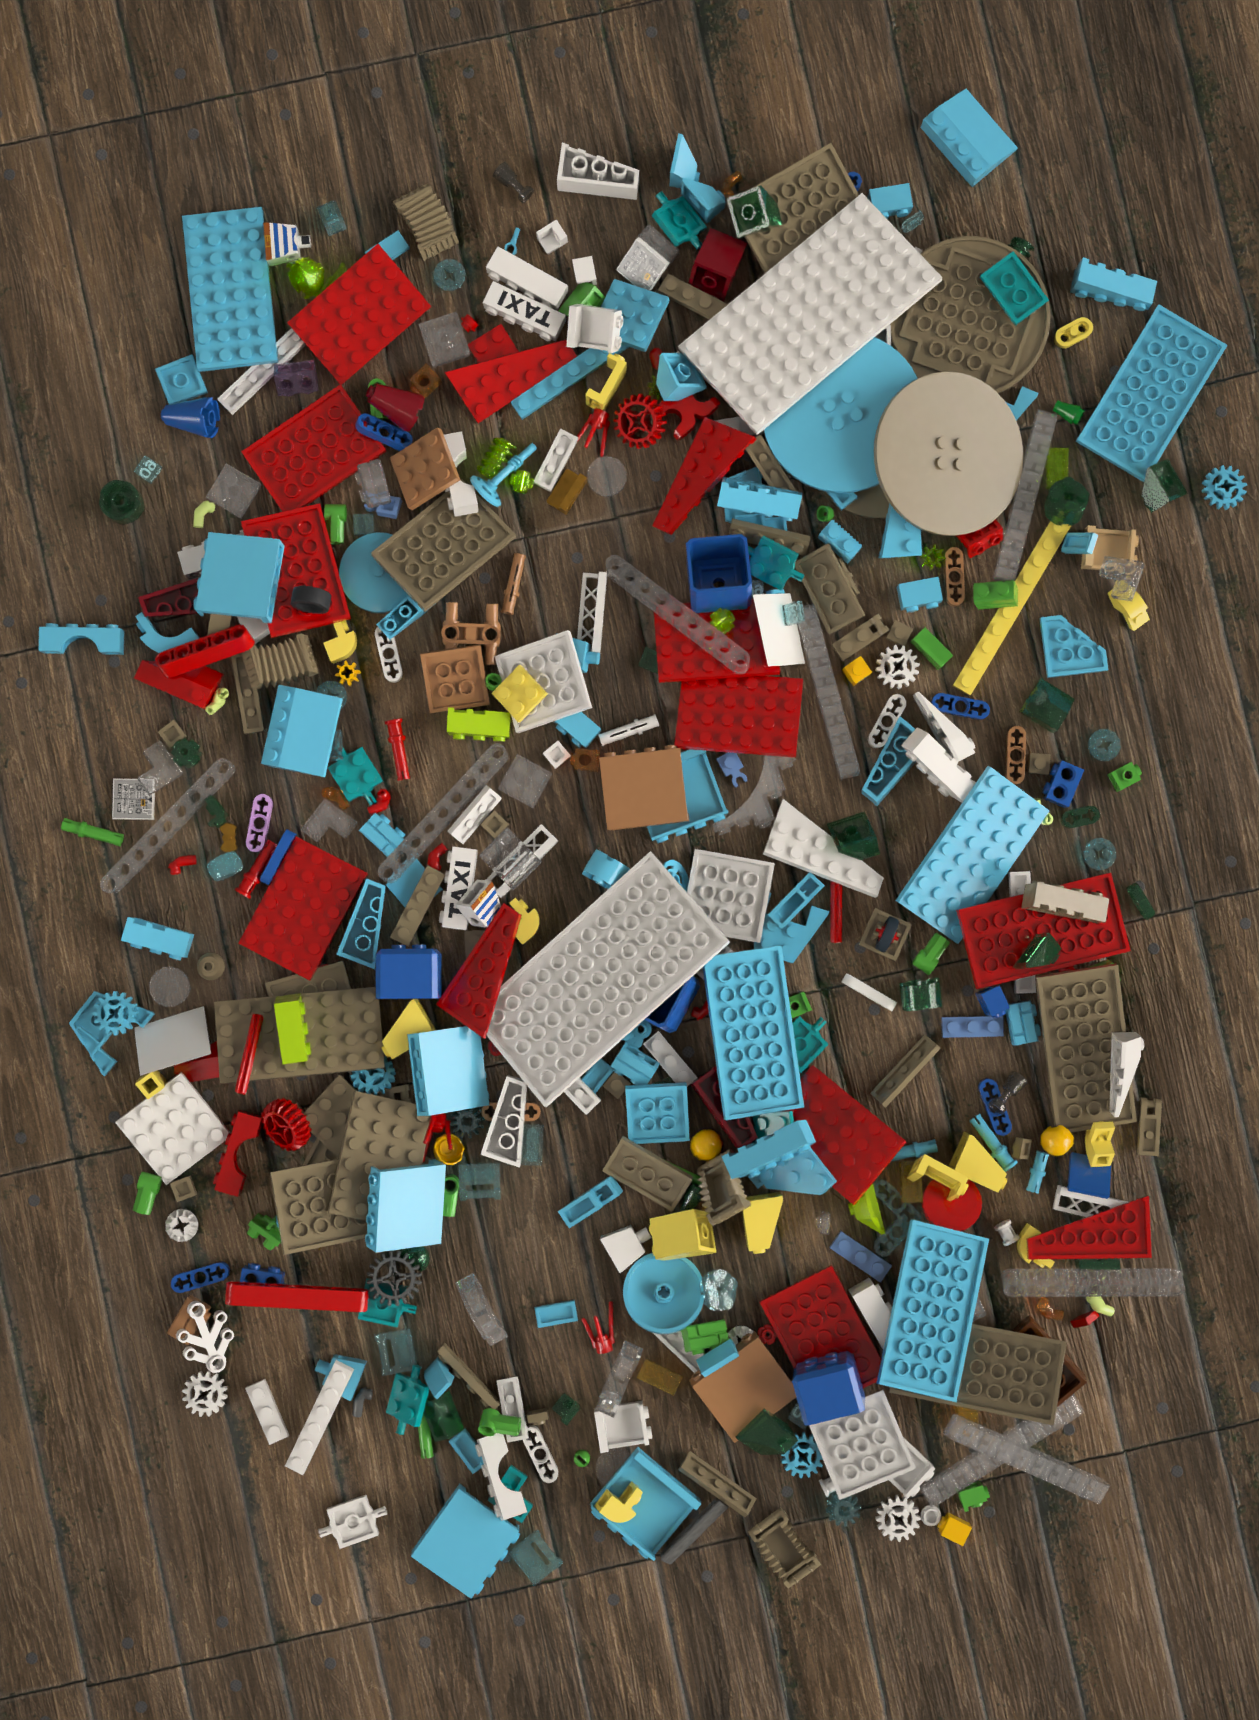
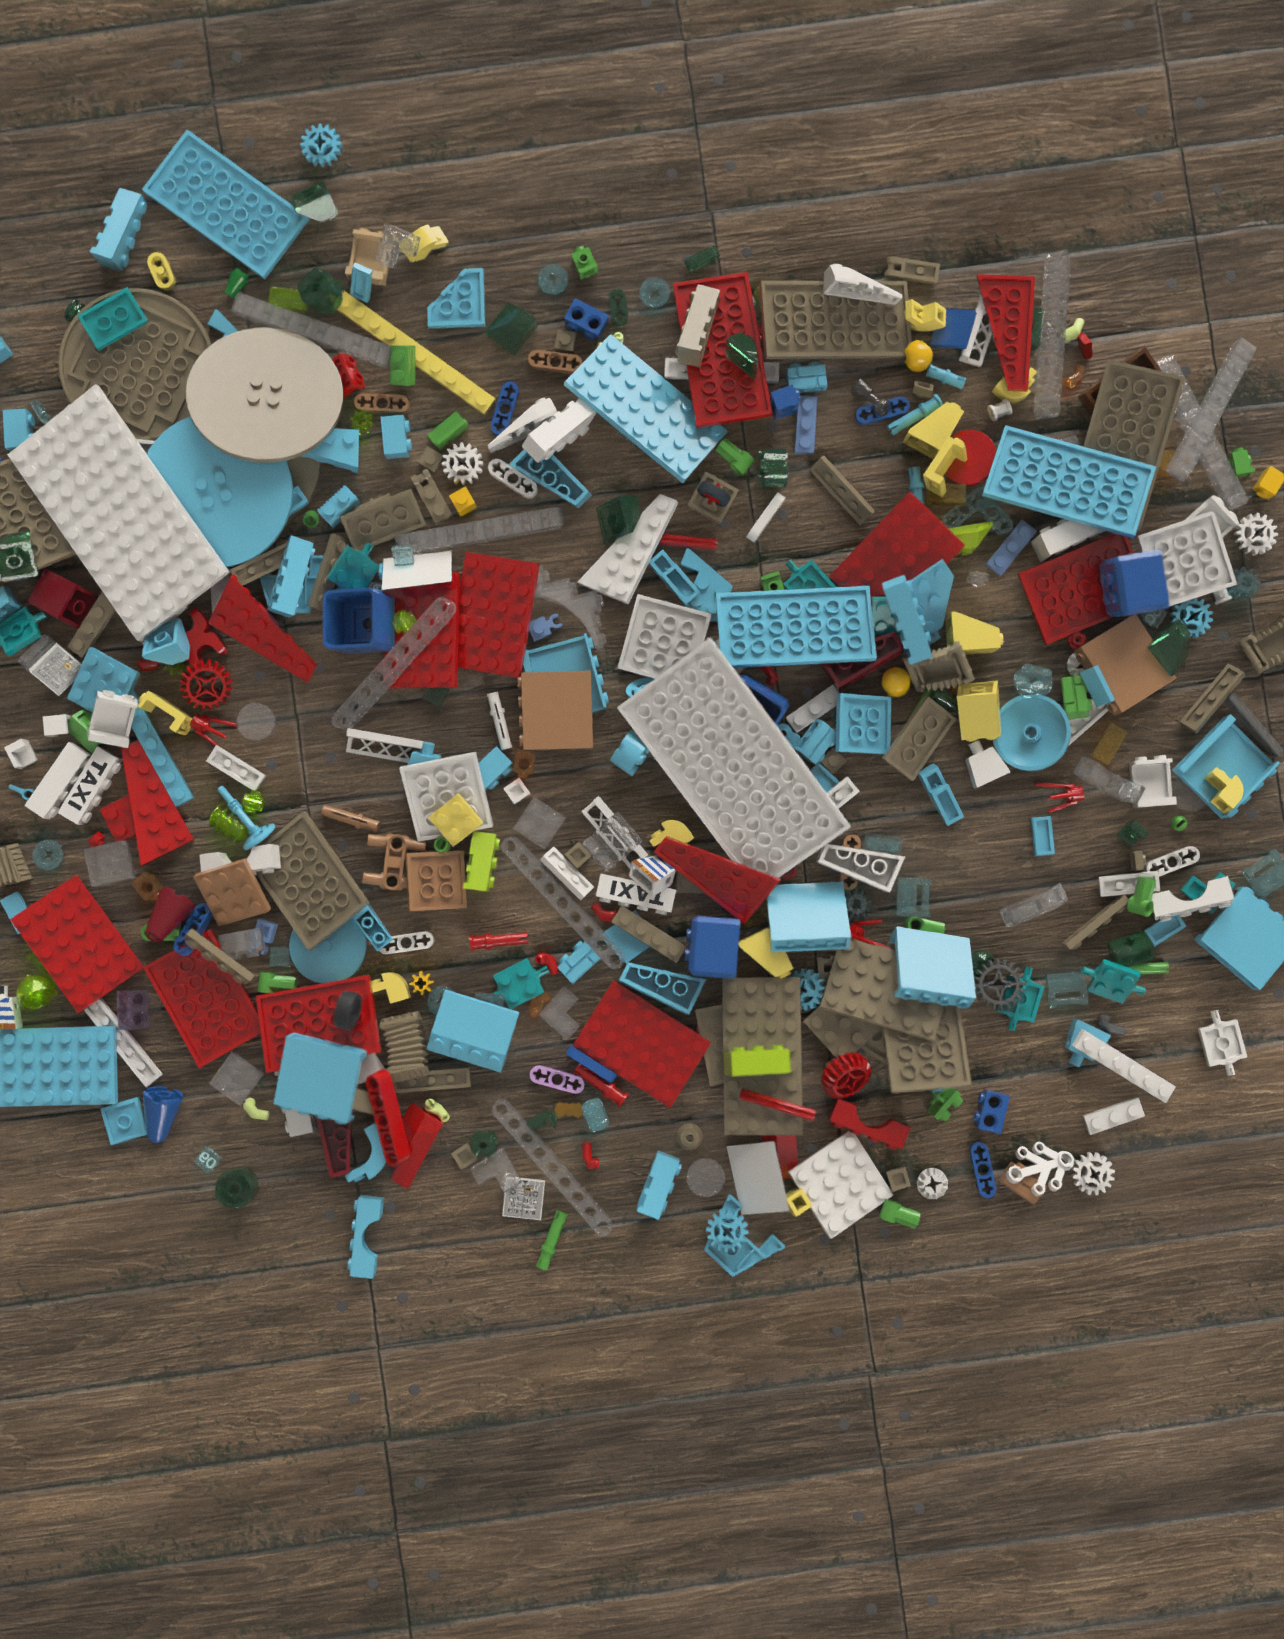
camera: 80 degrees left, 0 degrees up
(296, 1296) = (1009, 1078): red beam -> none
(360, 454) = (213, 953): none -> dark tan plate
(438, 1377) = (1096, 950): medium azure slope -> none
(447, 1156) = (886, 927): yellow hair -> none
(566, 491) = (266, 760): pearl gold panel -> none
(930, 1515) = (1255, 504): white plate -> none

